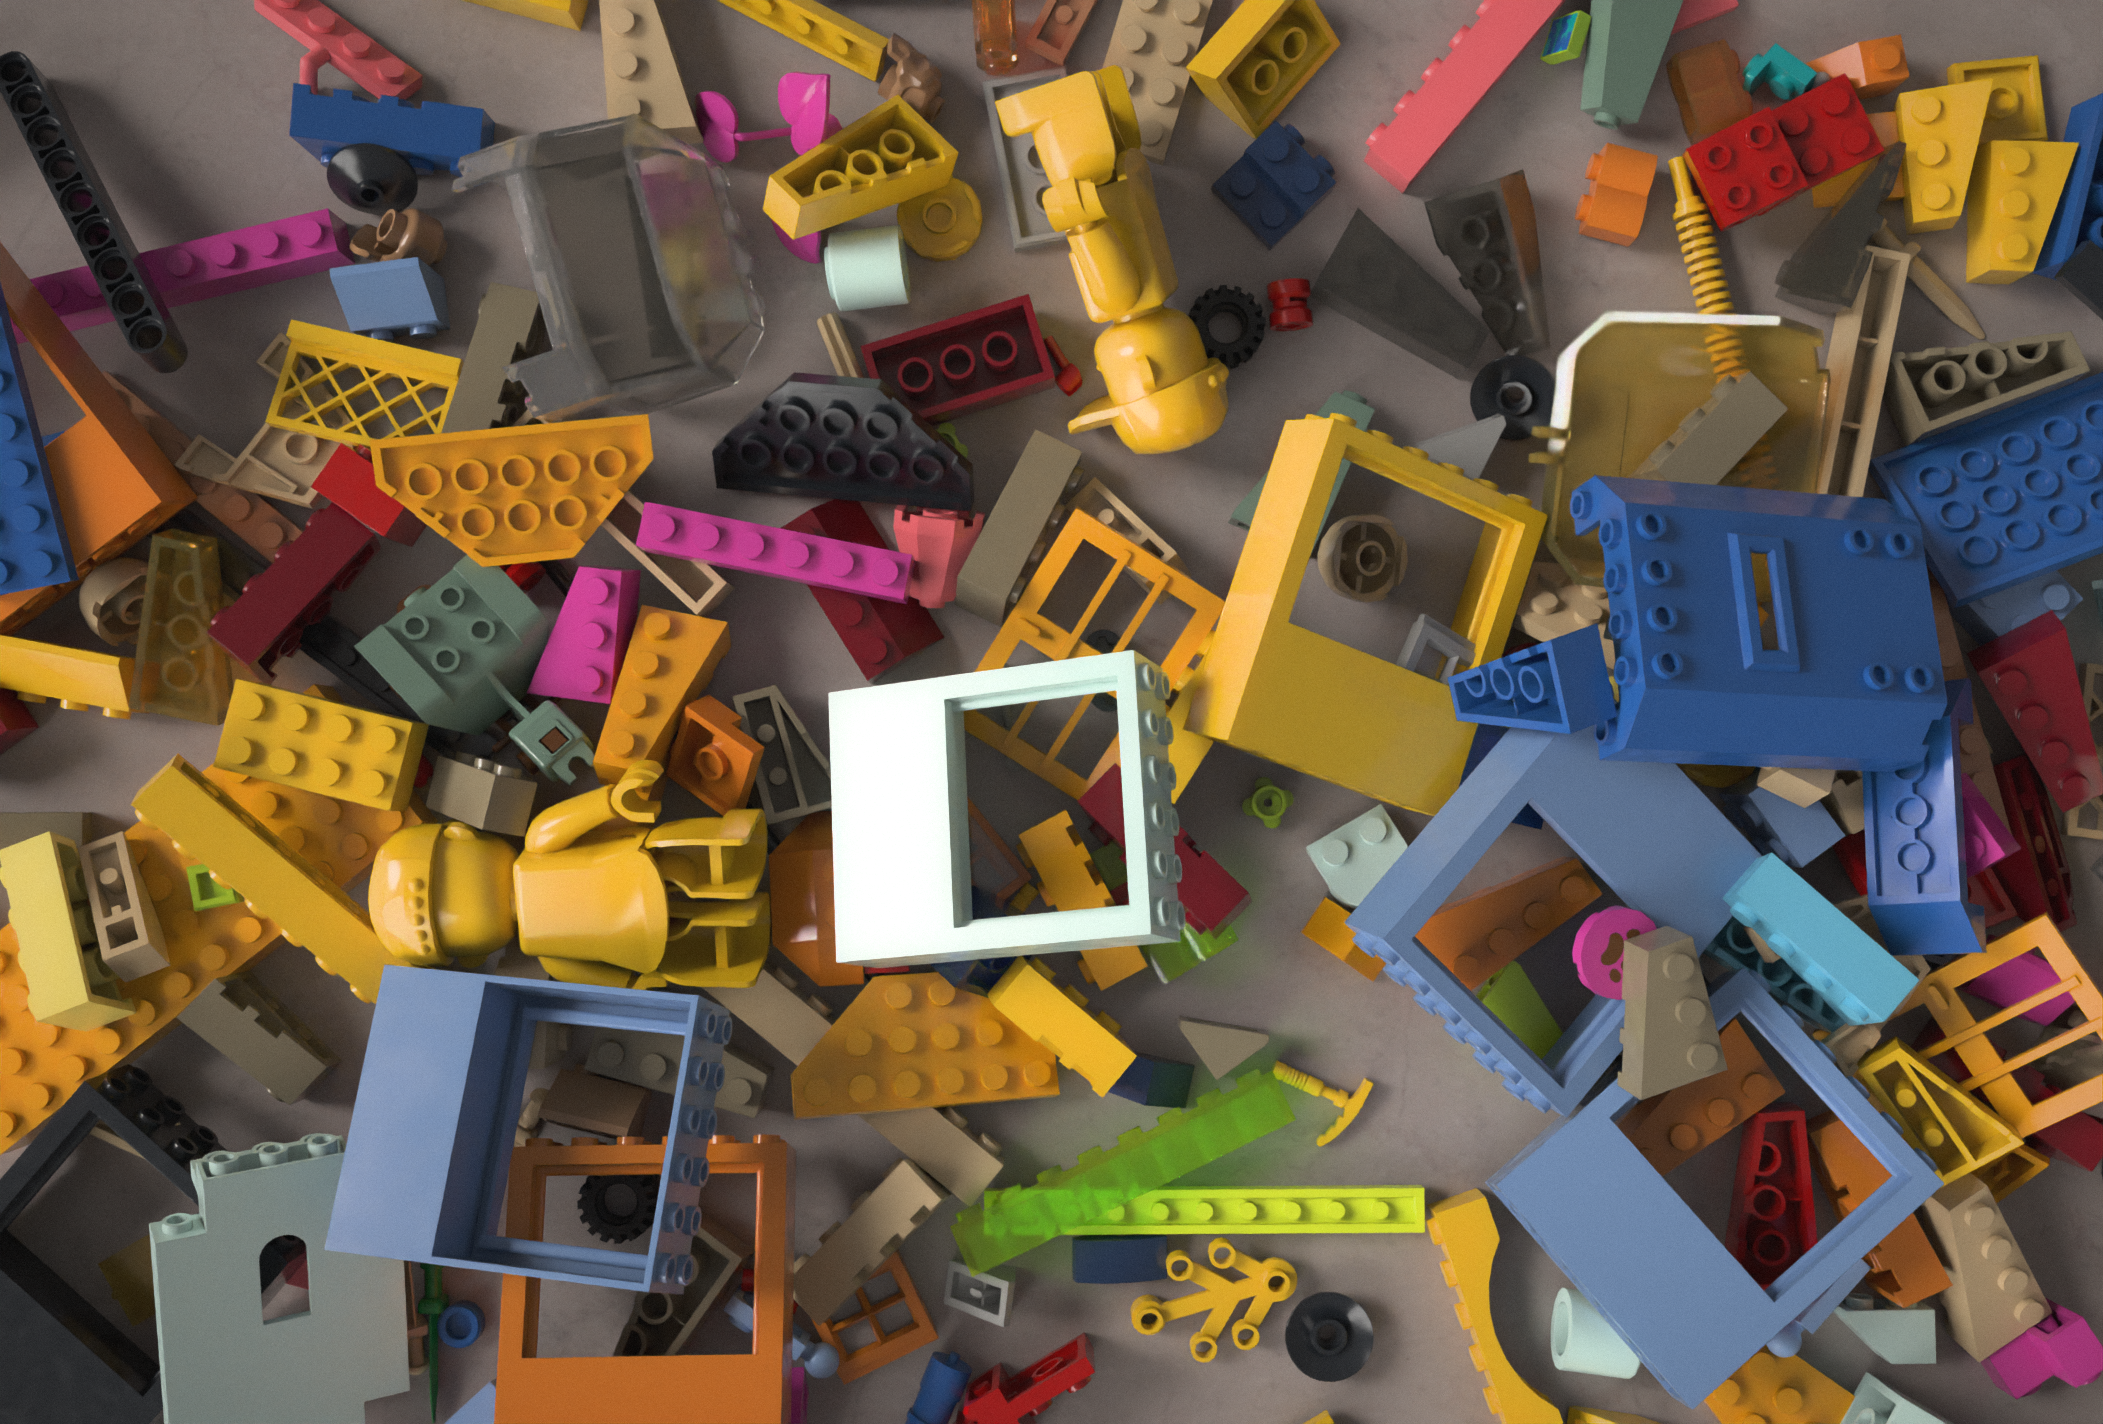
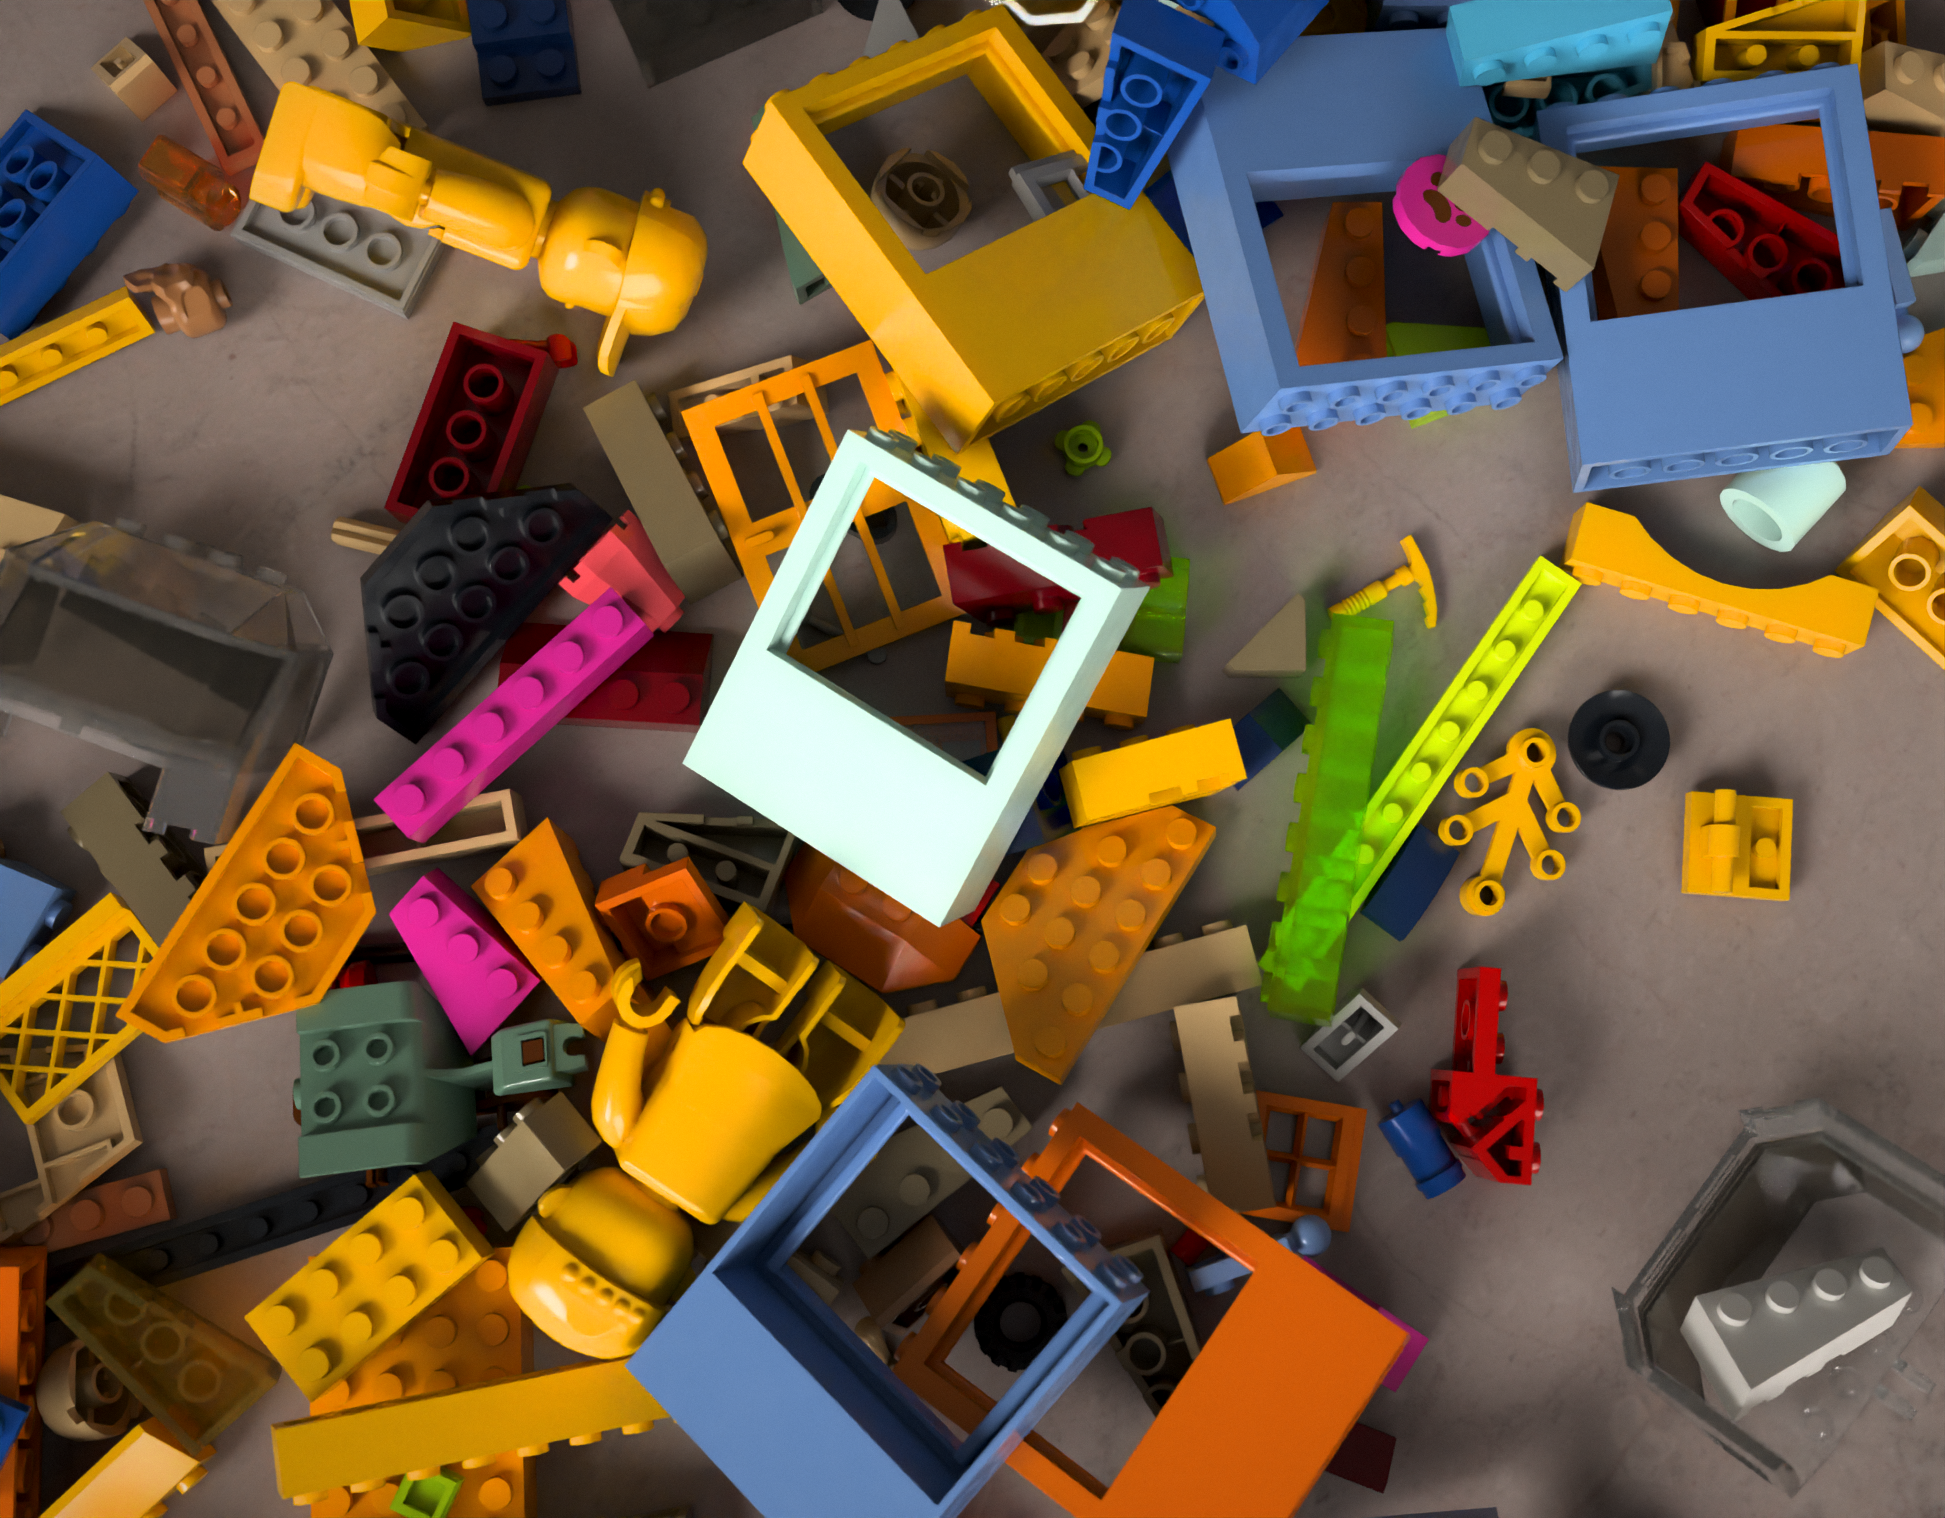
camera: 55 degrees left, 5 degrees down
(294, 591) = (205, 1210): dark red wedge -> none
(351, 484) = (156, 1075): red brick -> none
(803, 104) = (126, 391): dark pink plant -> none
(860, 170) = (222, 389): yellow wedge -> none
(867, 268) = (319, 454): light aqua piece -> none
(941, 222) = (324, 362): yellow tile -> none
(1247, 312) = (620, 150): black tyre -> none
(1289, 304) = (643, 106): red wheel -> none
(1357, 855) = (1191, 400): light aqua slope -> none

